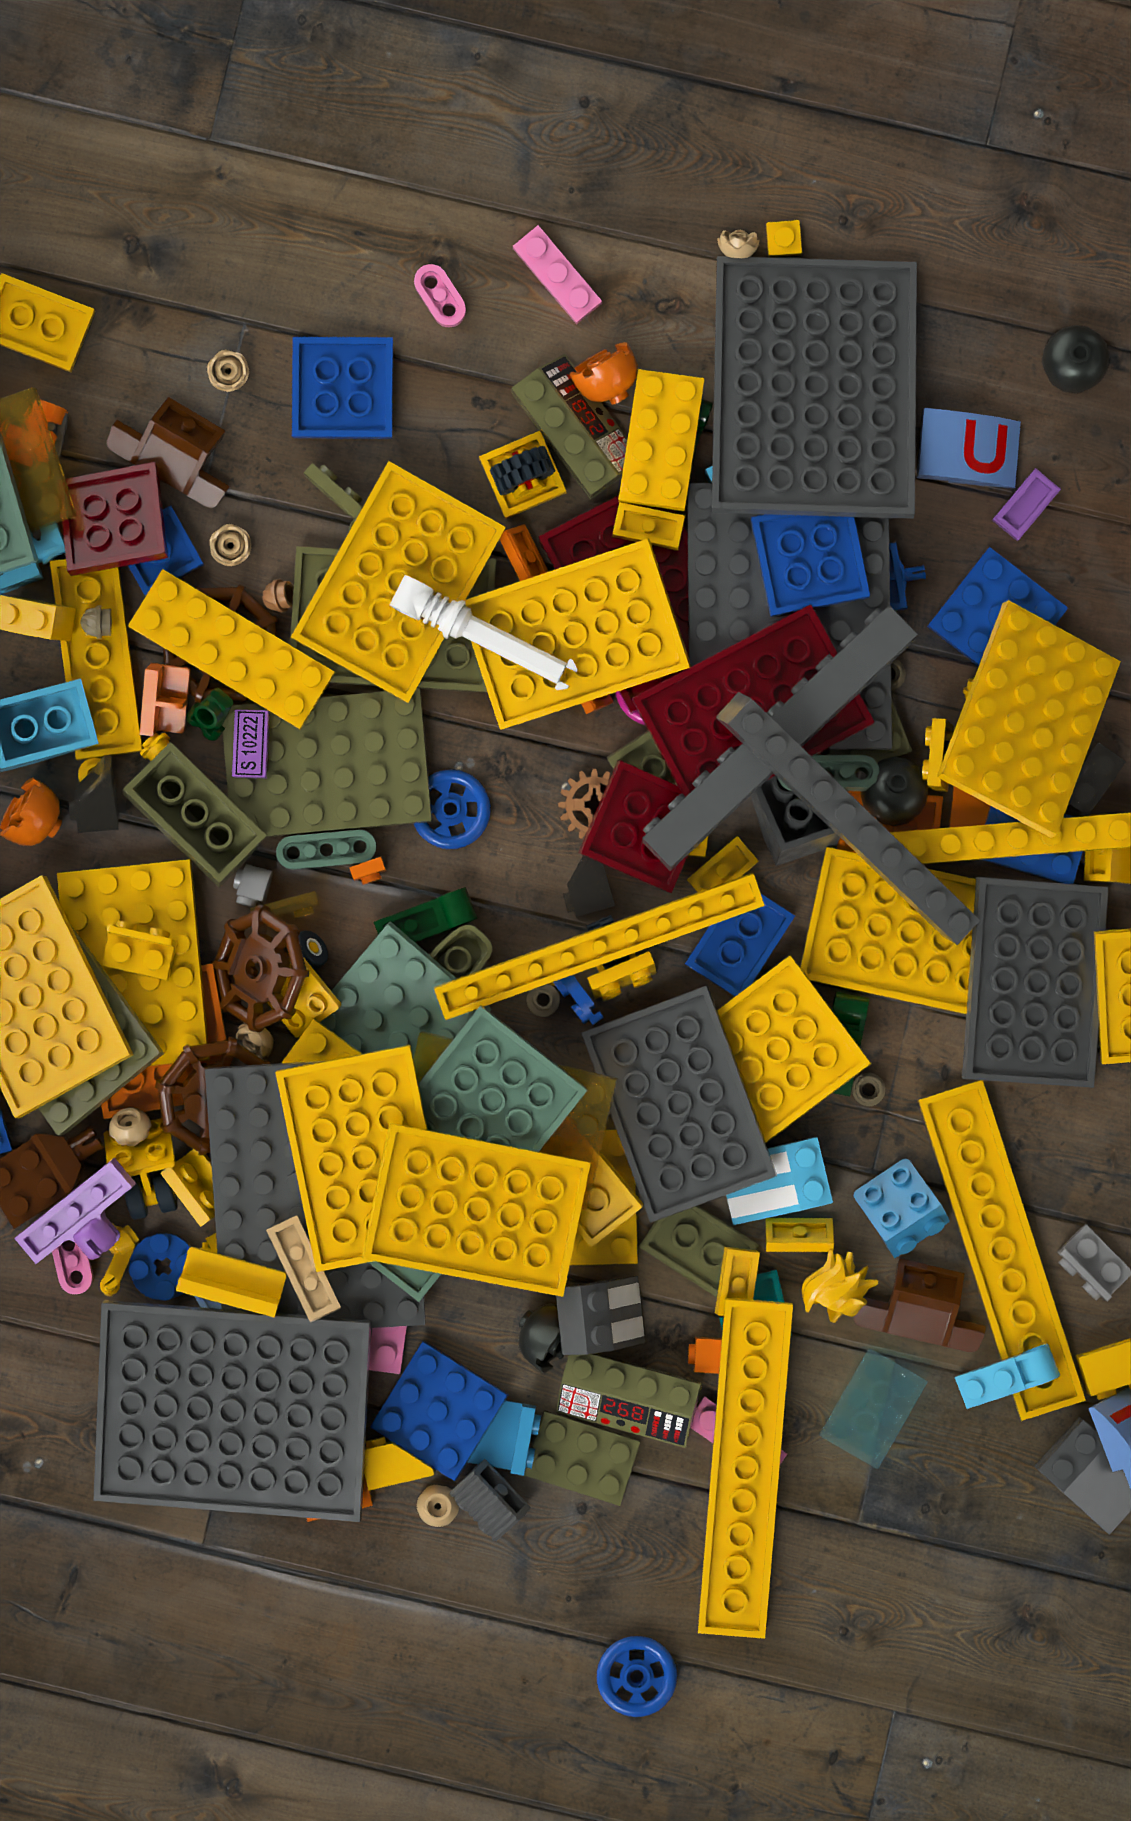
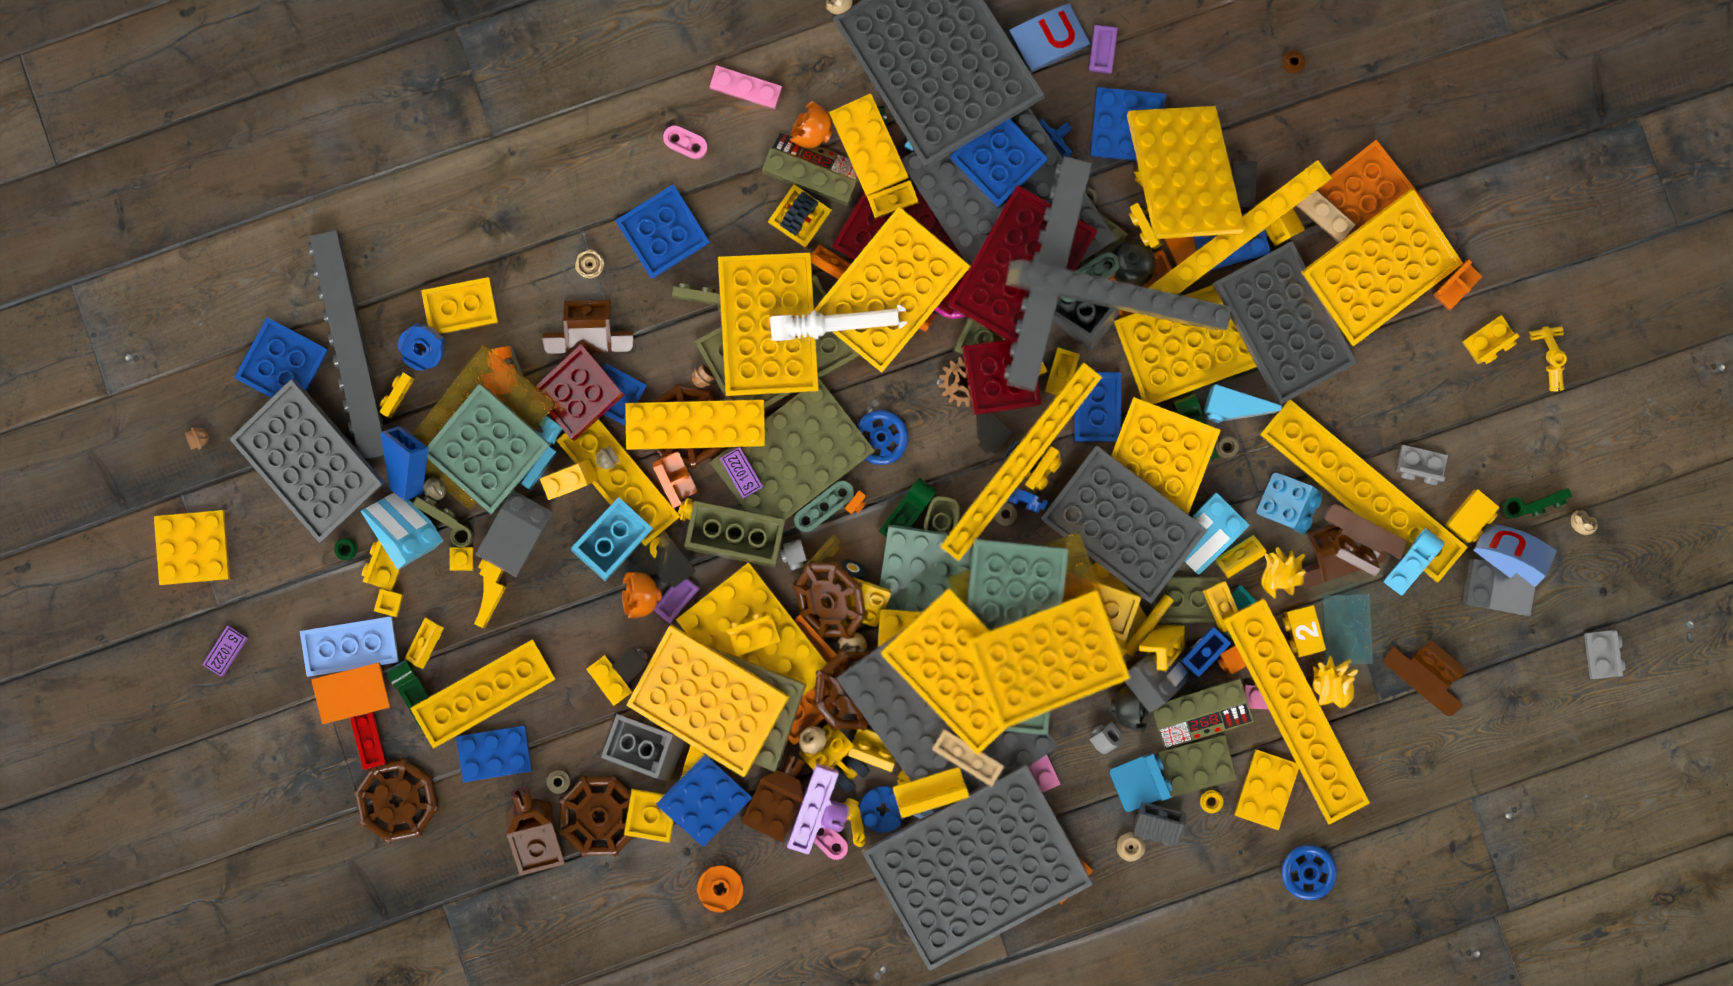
camera: 25 degrees left, 0 degrees up
(72, 849) = (675, 600): none -> medium lavender tile
(211, 714) = (706, 470): dark green plate -> none
(230, 534) = (648, 361): tan plate -> none
(391, 1464) = (1090, 839): yellow slope -> none
(439, 1410) = (1097, 791): blue plate -> none
(491, 1352) = (1106, 737): none -> light grey plate
(580, 1520) = (1218, 801): none -> yellow plate
(631, 1247) = (1148, 625): none -> yellow piece
(639, 1283) = (1167, 642): none -> yellow panel
(649, 1541) = (1266, 789): none -> yellow plate
(680, 1323) = (1205, 651): none -> blue brick
(814, 1463) = (1334, 683): none -> yellow hair
(818, 1376) = (1304, 631): none -> yellow brick
(904, 1041) = (1227, 404): none -> medium azure slope
(939, 1527) = (1429, 673): none -> reddish brown plate
(958, 1308) = (1361, 540): none -> reddish brown plate

